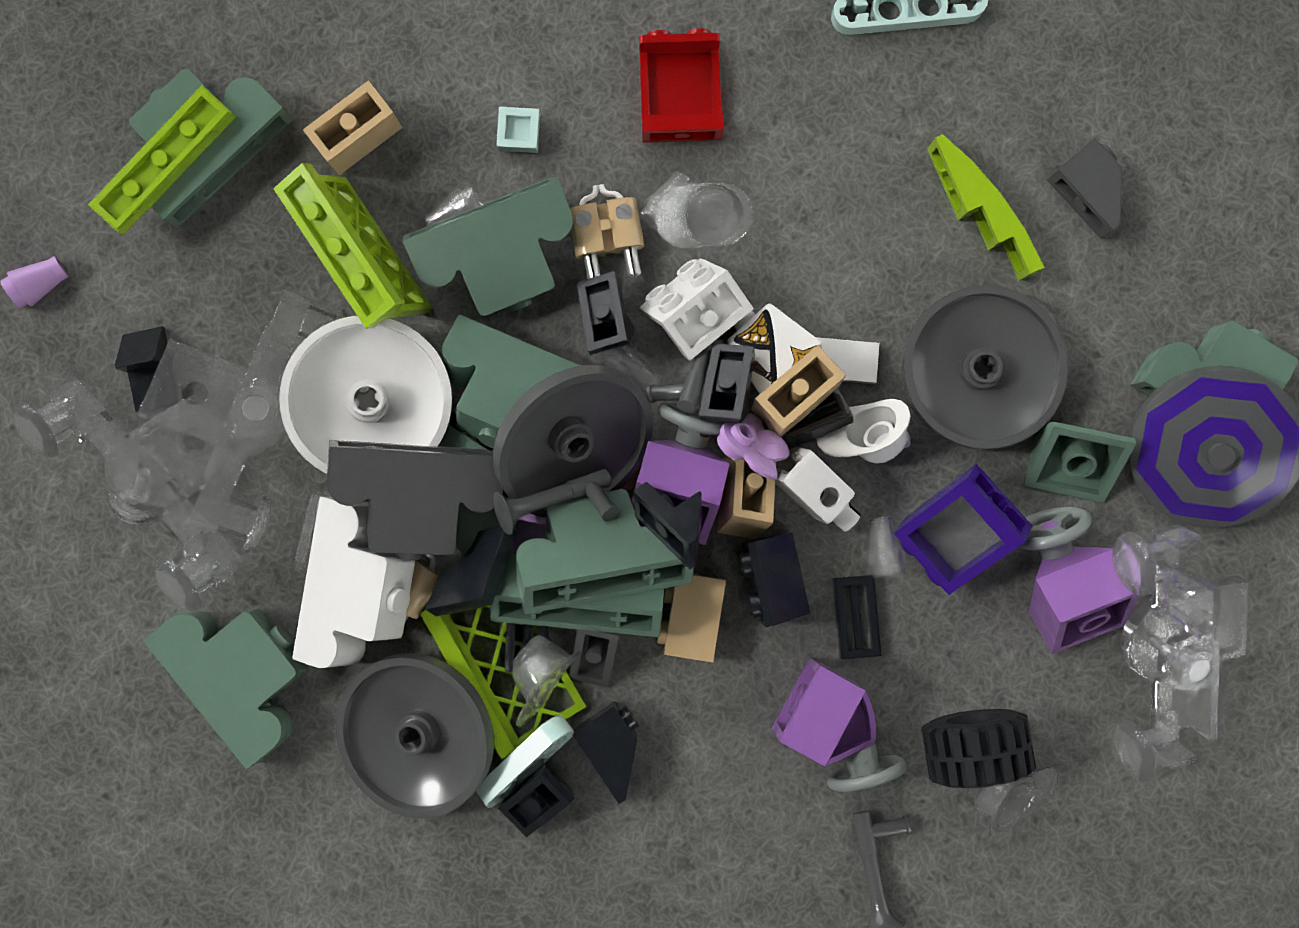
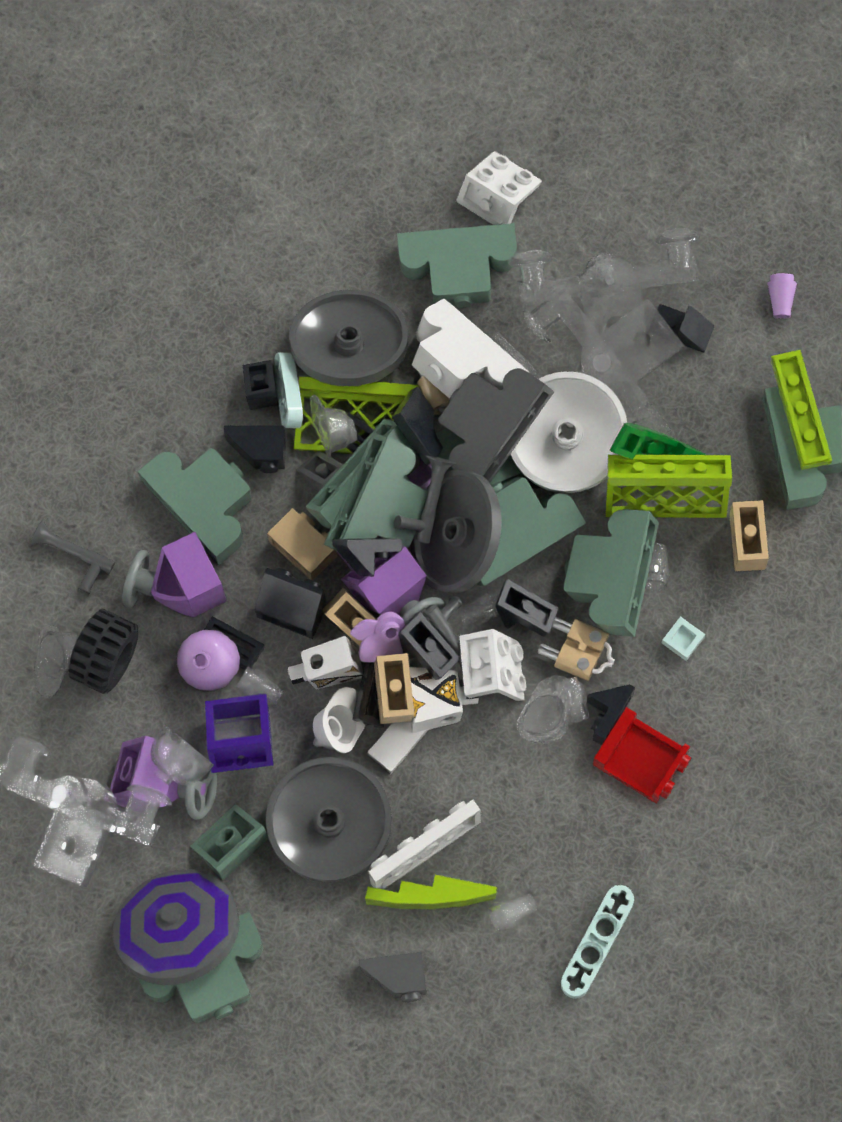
camera: 130 degrees right, 15 degrees down
(112, 693) = (496, 189): none -> white bracket
(316, 289) = (641, 440): none -> green slope
(643, 150) = (613, 704): none -> black slope
(718, 769) = (201, 498): none -> sand green brick
(898, 626) = (208, 660): none -> lavender cylinder
(941, 113) = (510, 912): none -> clear cone
(955, 245) = (415, 852): none -> white plate
(1062, 564) = (177, 759): none -> clear cylinder

